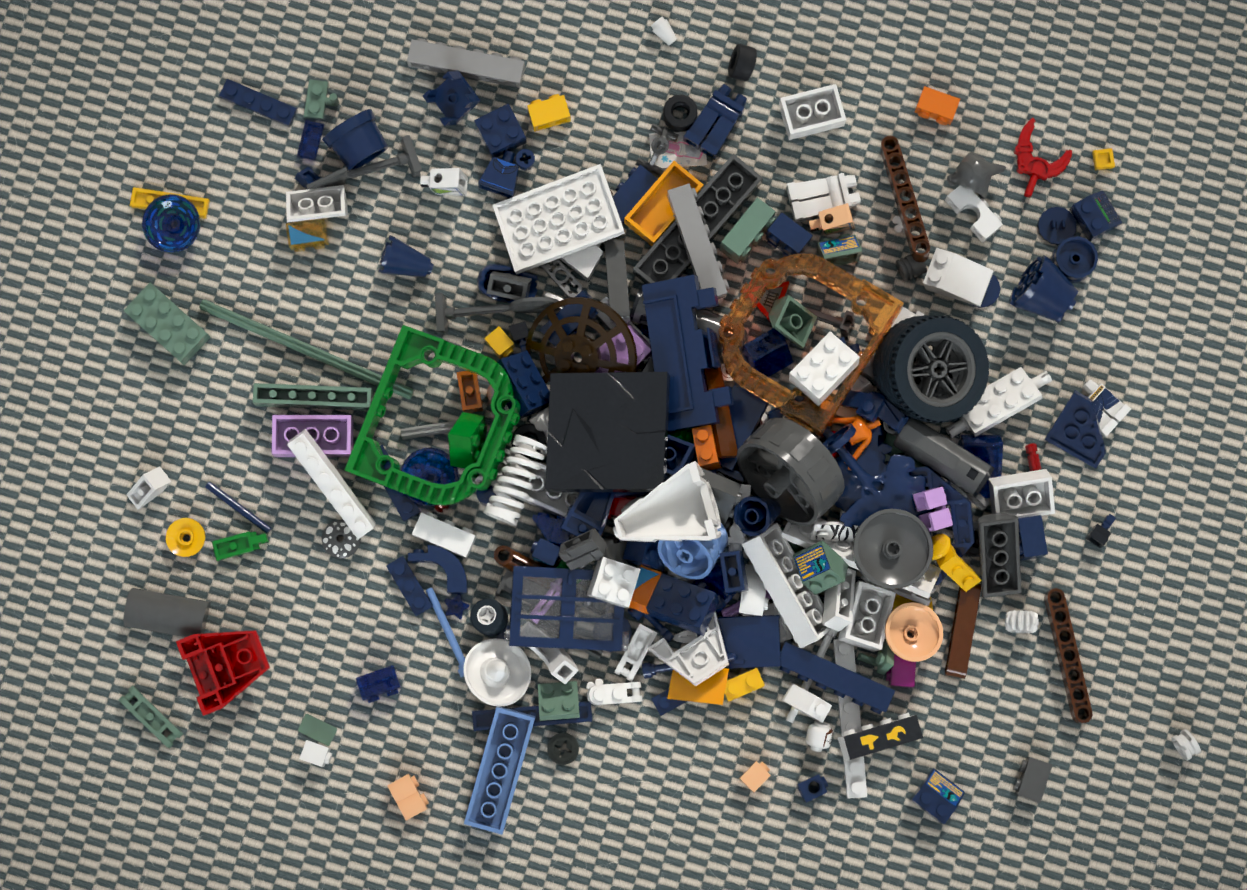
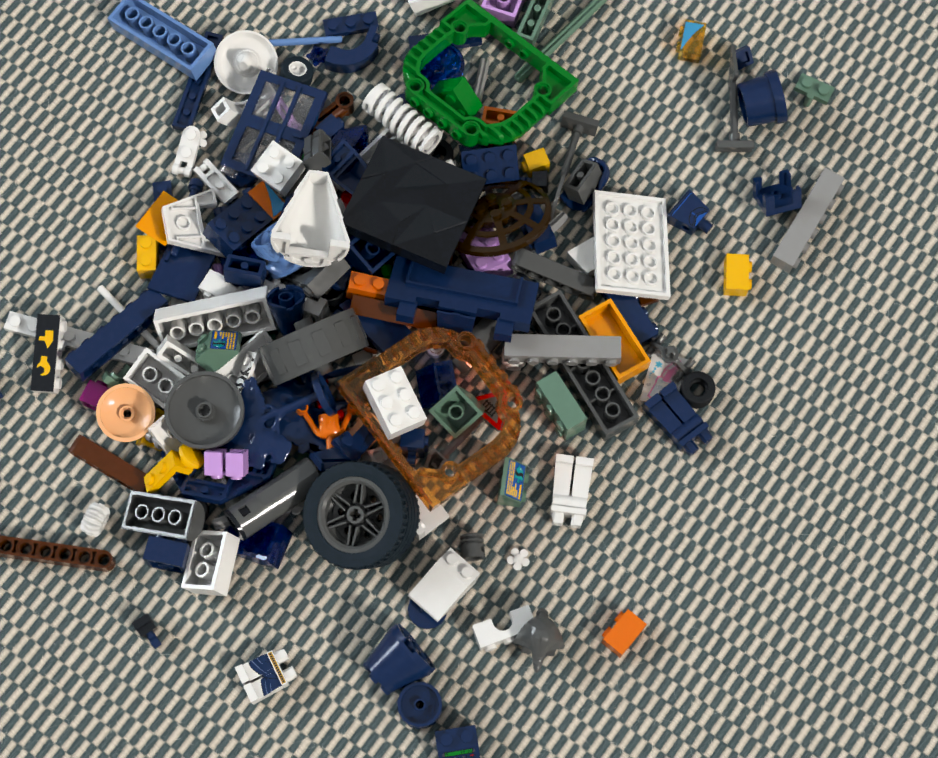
camera: 110 degrees right, 10 degrees down
(258, 102) = (826, 42): dark blue plate -> none
(310, 140) = (785, 74): clear blue tile -> none
(316, 203) = (714, 51): white slope -> none
(404, 260) = (640, 106): dark blue cone -> none
(444, 534) = (382, 63): white brick -> none
(446, 181) = (701, 160): white torso -> none
(500, 131) = (732, 227): dark blue brick -> none
(530, 157) = (702, 237): dark blue bush -> none
(547, 268) = (575, 242): light grey beam -> none
(558, 701) = (198, 103): sand green plate -> none
(572, 745) = (159, 89): pearl dark grey gear -> none
(664, 31) = (783, 404): white cone -> none
(742, 62) = (728, 462): black tyre -> none
(755, 776) = (64, 240): light nougat brick -> none
(787, 236) = (540, 440): dark blue brick -> none
(804, 791) = (30, 276): dark blue brick -> none
(807, 703) = (106, 303): white slope -> none
(812, 112) = (657, 508): white brick -> none
(819, 736) = (74, 305): white head -> none
(841, 219) = (542, 491): light nougat torso -> none
(905, 190) = (530, 564): reddish brown beam -> none
(1001, 401) = (309, 582): white plate -> none
(1033, 458) = (243, 594): red axle -> none
(1035, 166) = (529, 709): red bar -> none
(1056, 225) = (462, 708): dark blue piece -> none
(1078, 431) = (250, 643): dark blue plate -> none

